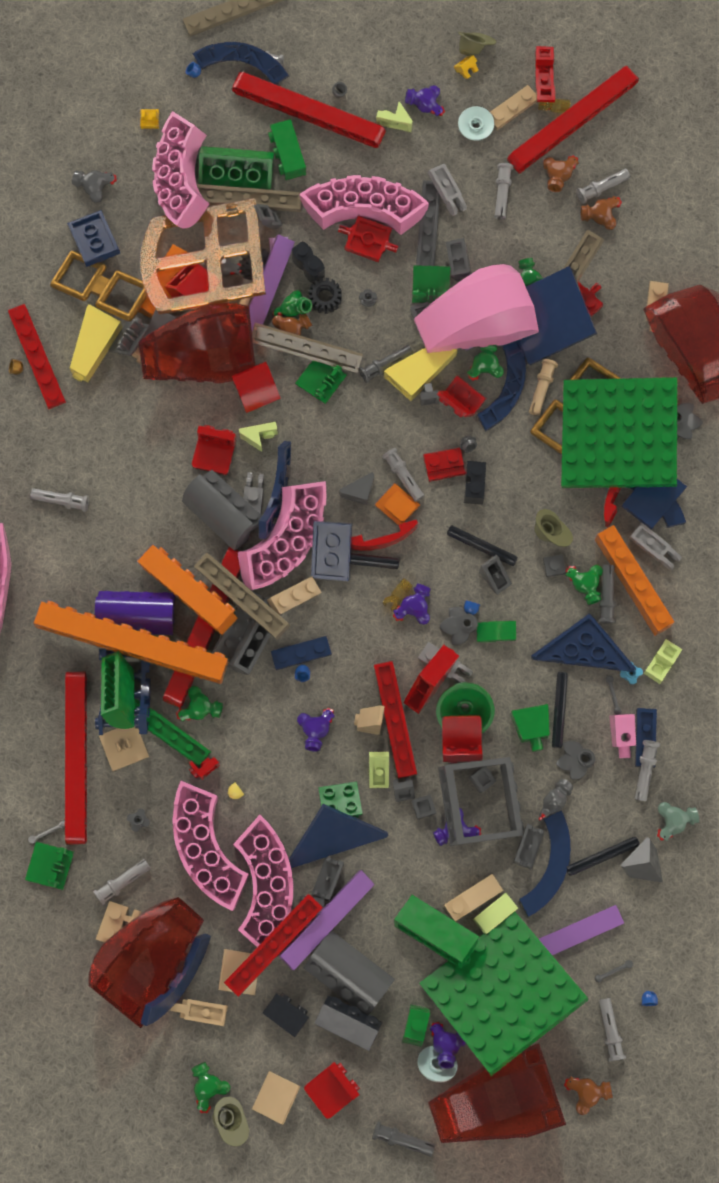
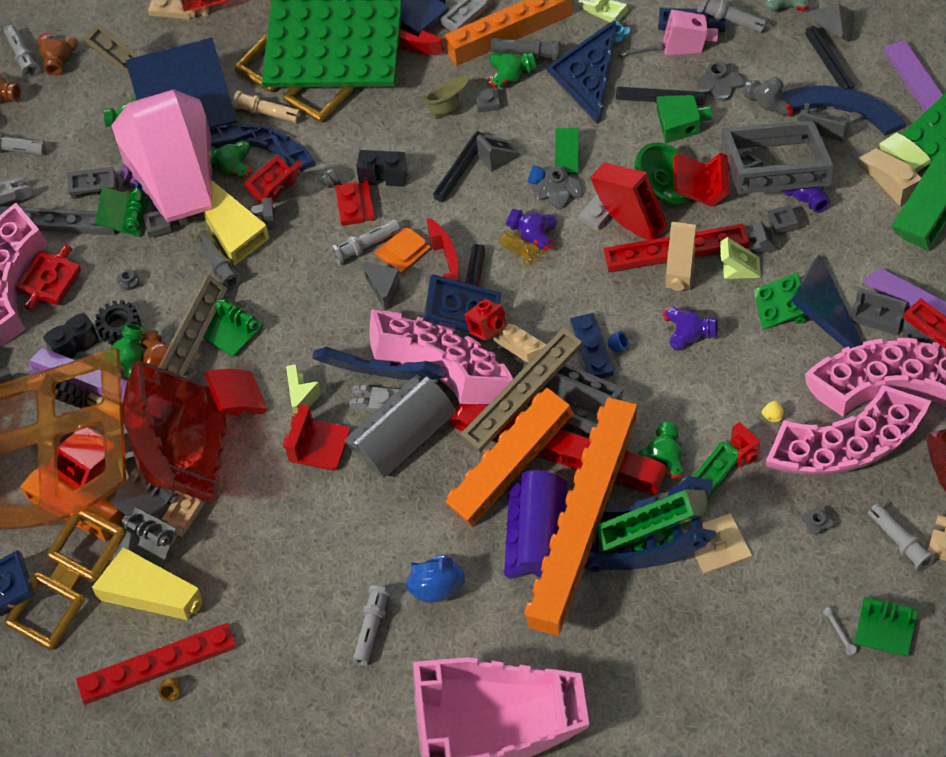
camera: 80 degrees left, 20 degrees down
(75, 758) = (736, 594): red beam -> none
(92, 540) = (435, 579): none -> blue helmet
(313, 568) = (486, 319): none -> red brick

